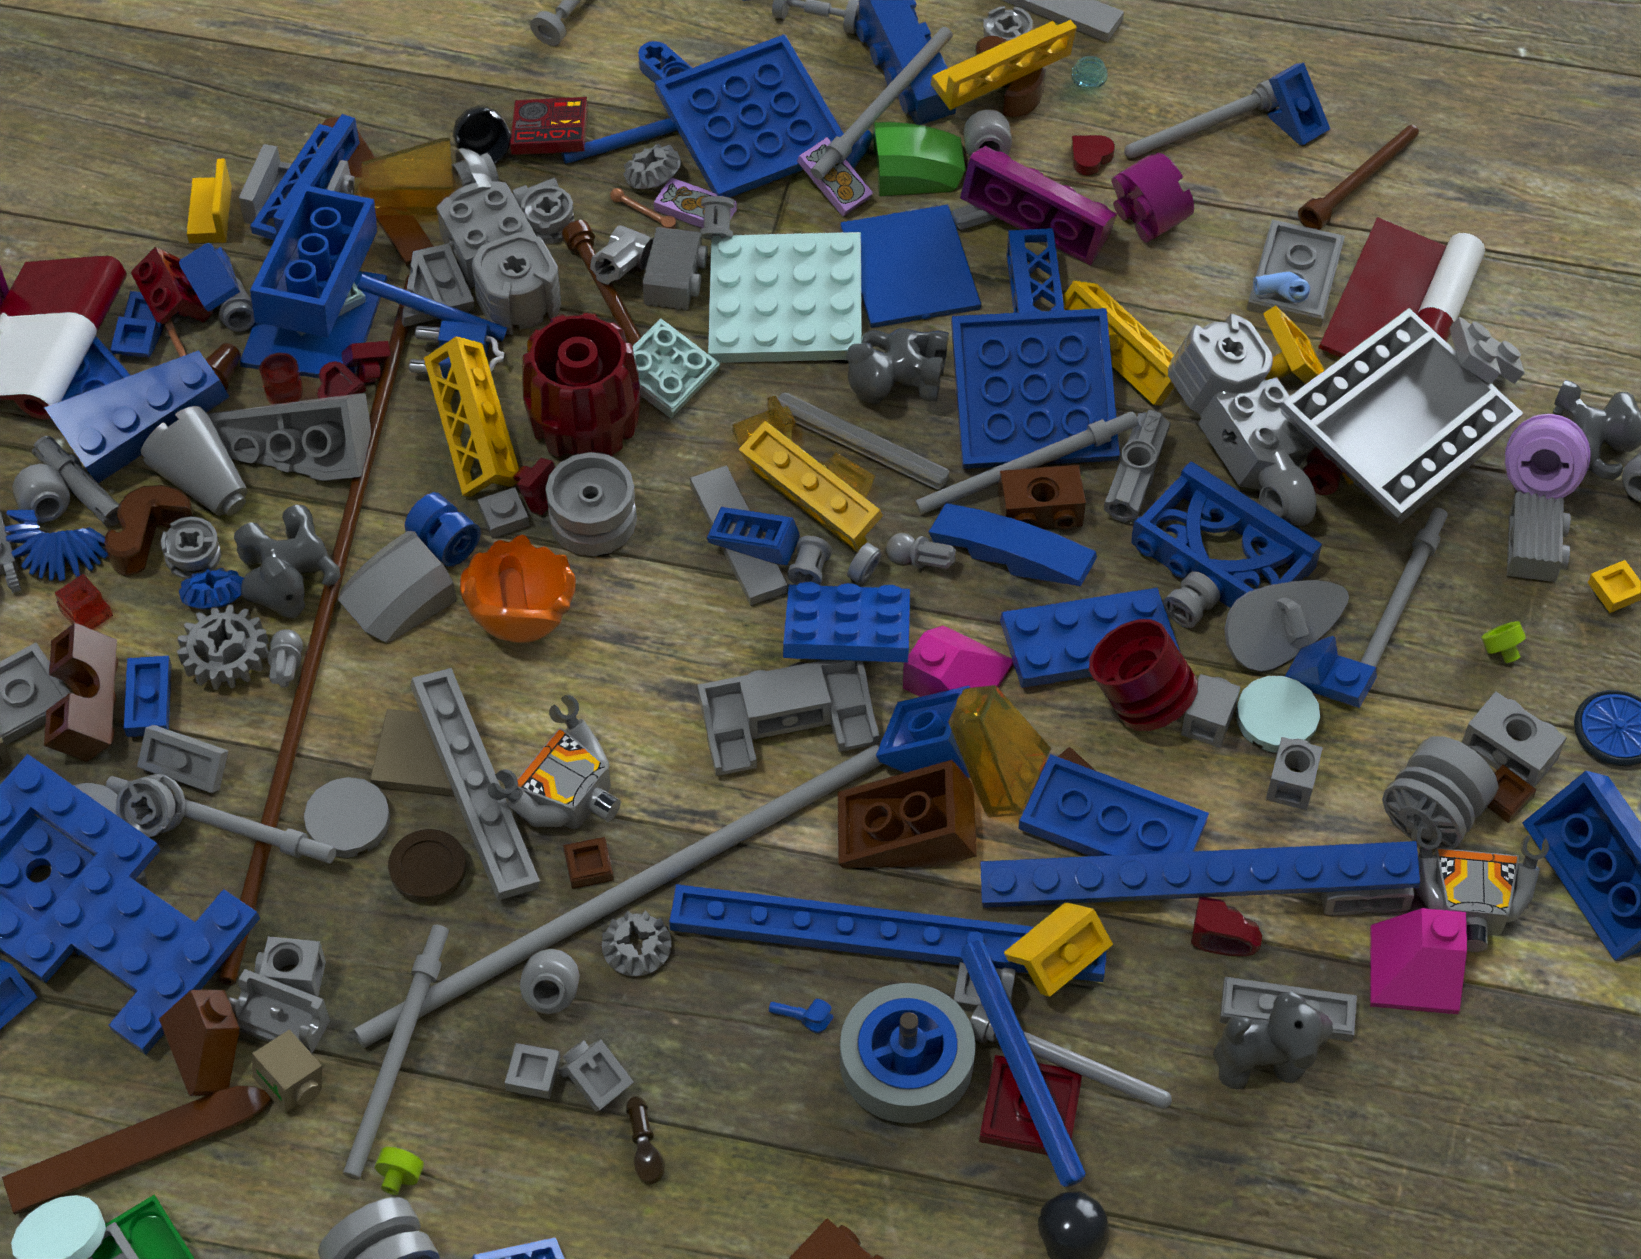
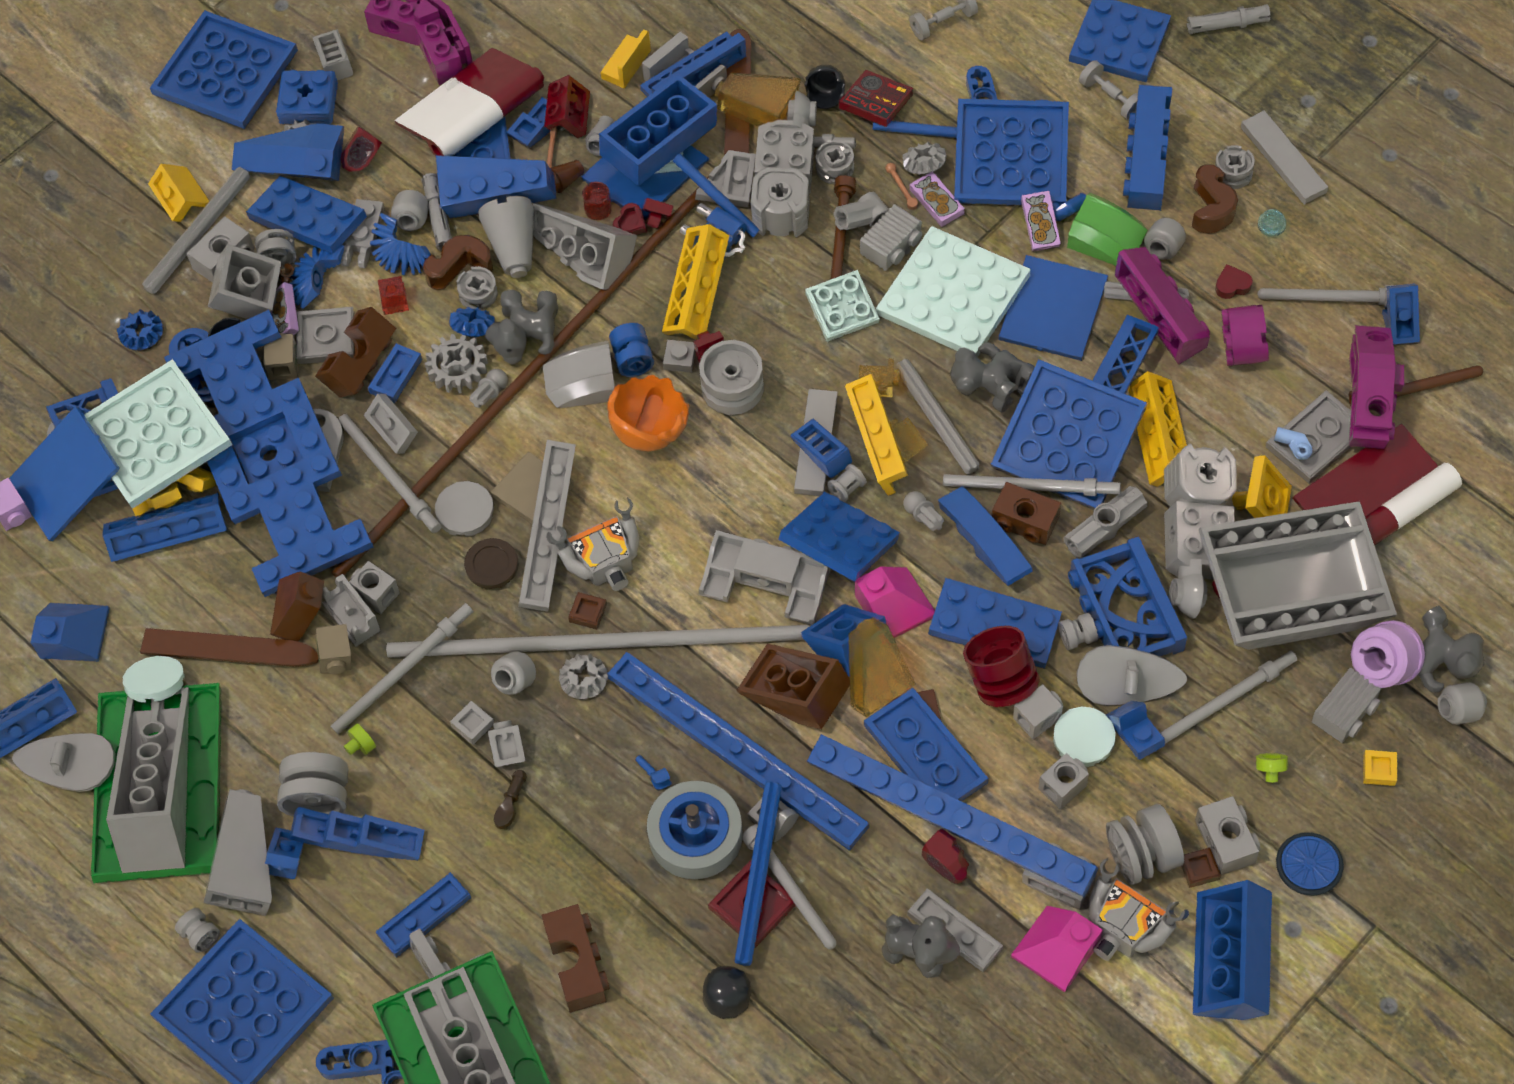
camera: 35 degrees right, 5 degrees up
(151, 805) = (352, 443): light grey wheel -> none
(210, 275) = (593, 109): blue slope -> none
(581, 386) = (769, 295): dark red wheel -> none
(712, 206) = (939, 215): light grey bush -> none
(841, 146) = (1050, 202): light grey bar -> none
(864, 563) = (880, 501): light grey tile -> none
(1004, 63) = (1204, 191): yellow fence -> none
(1060, 946) = (829, 814): yellow panel -> none
(1333, 182) = (1373, 386): none -> magenta brick
(1484, 354) = (1398, 554): light grey plate -> none

